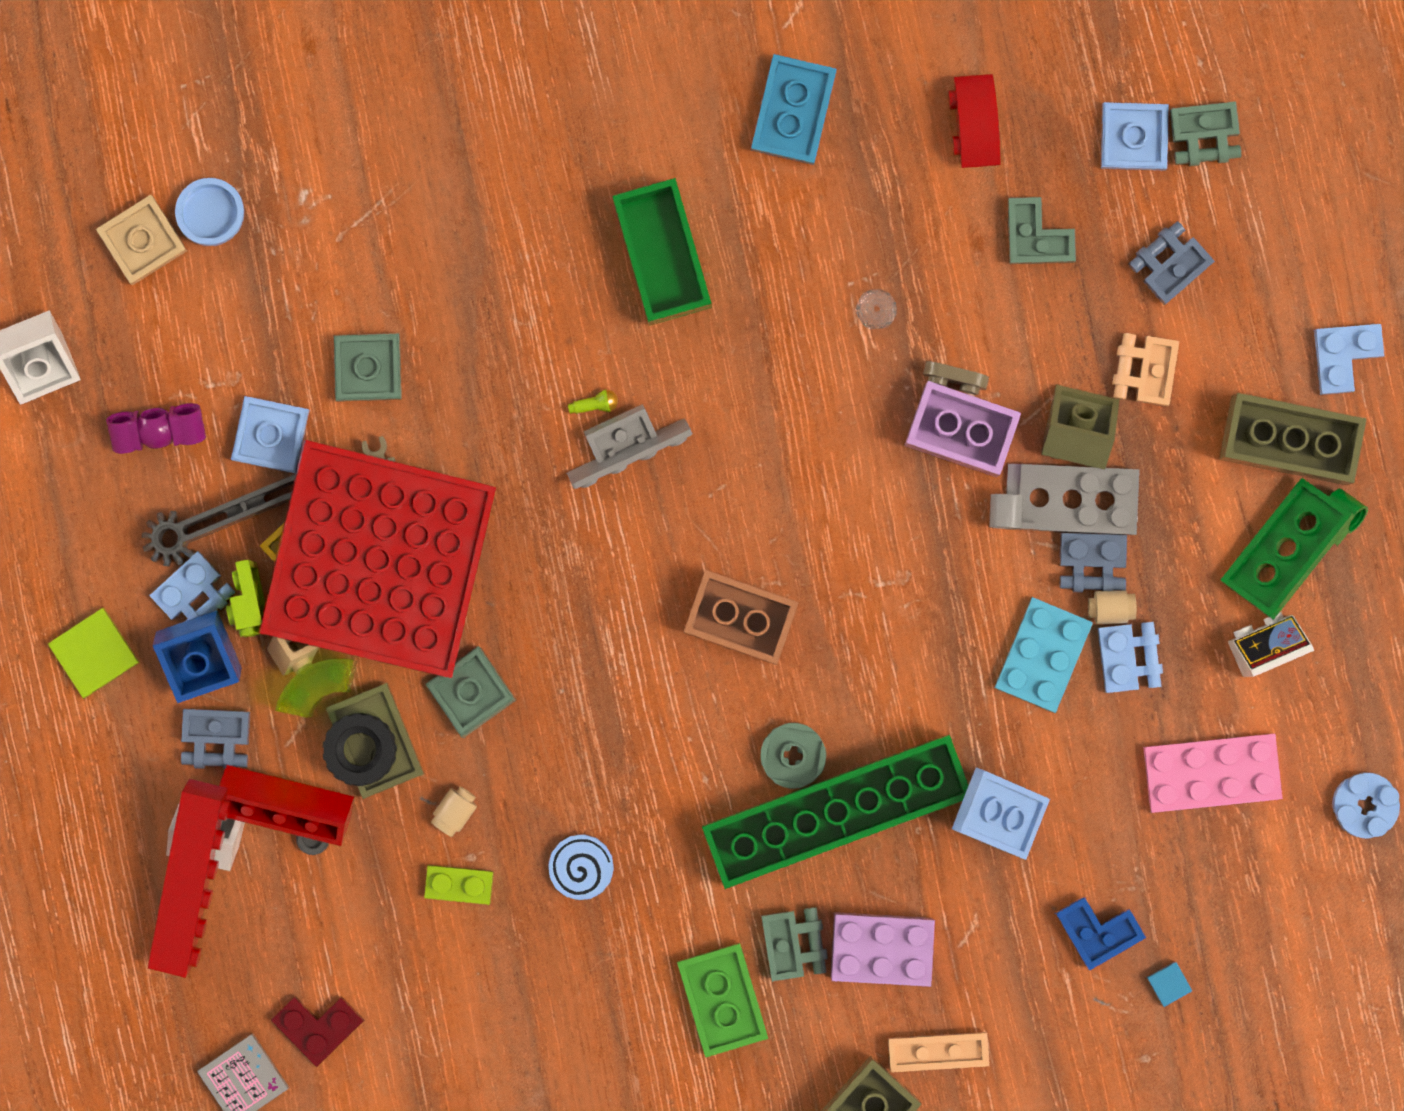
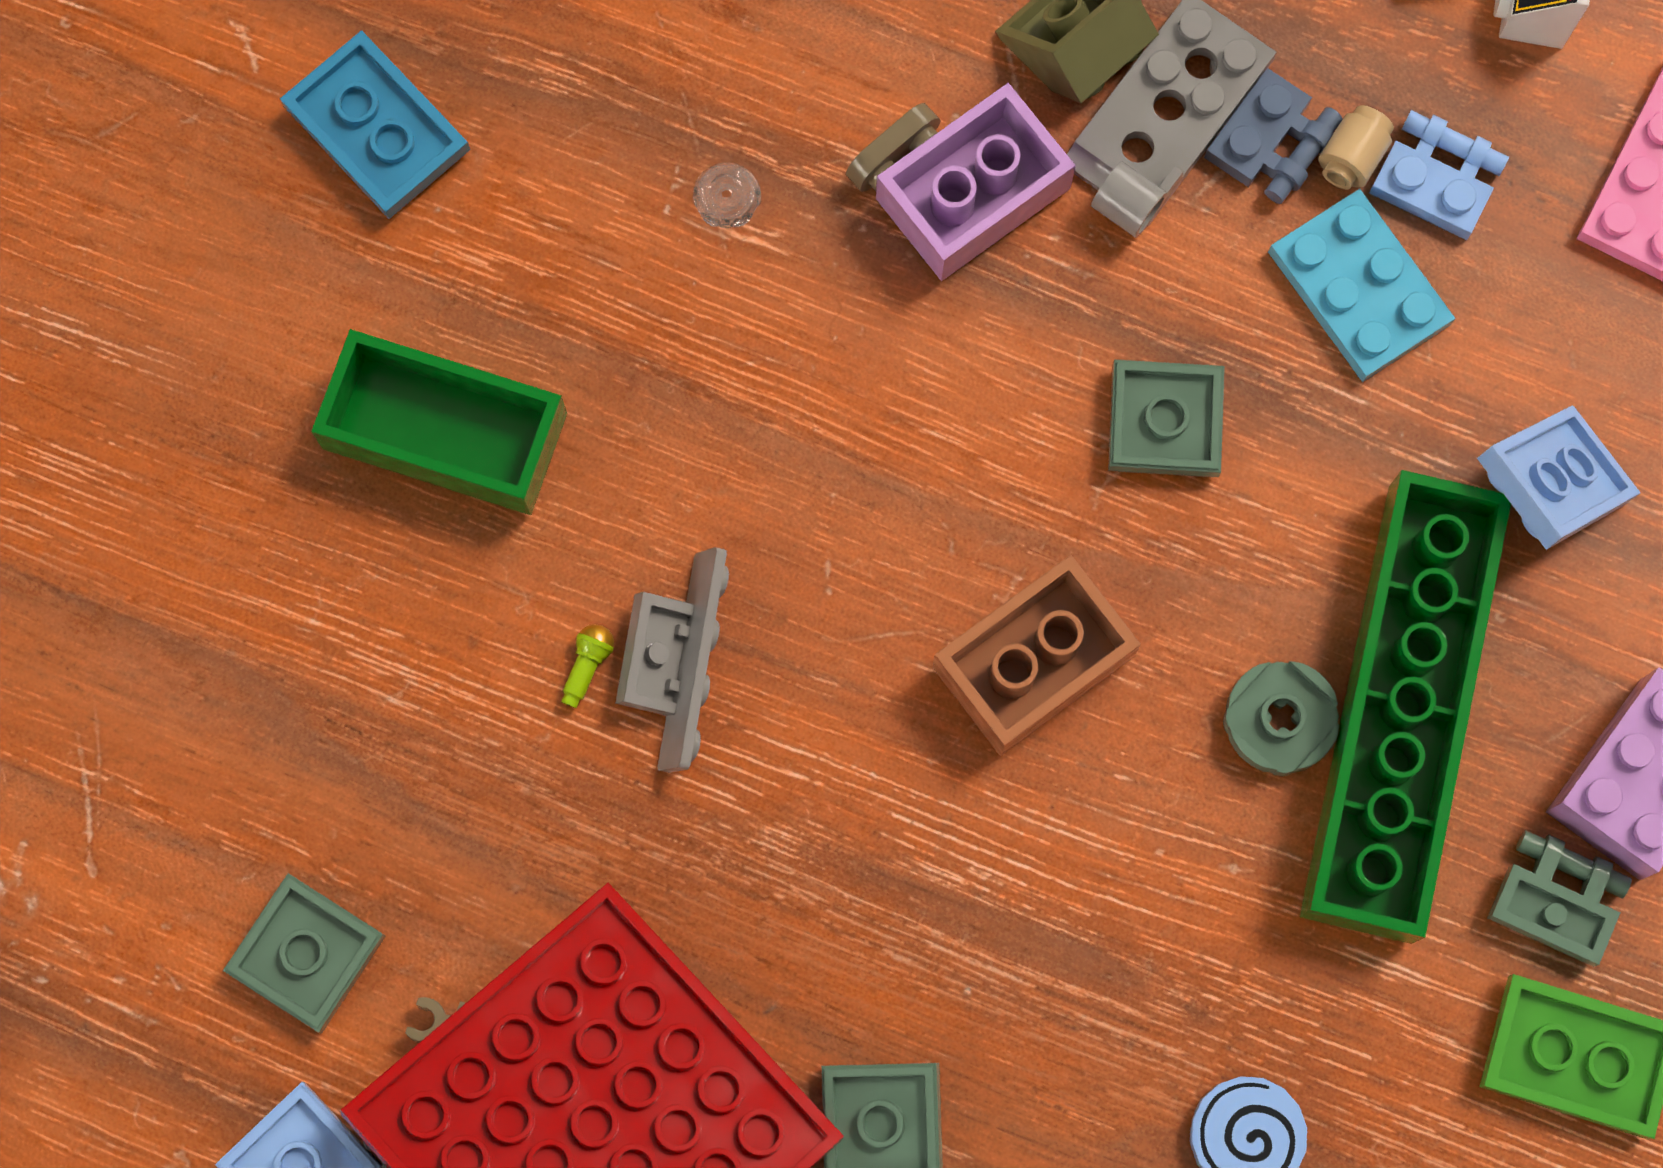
camera: 55 degrees left, 10 degrees down
(906, 603) = (1166, 418): none -> sand green plate

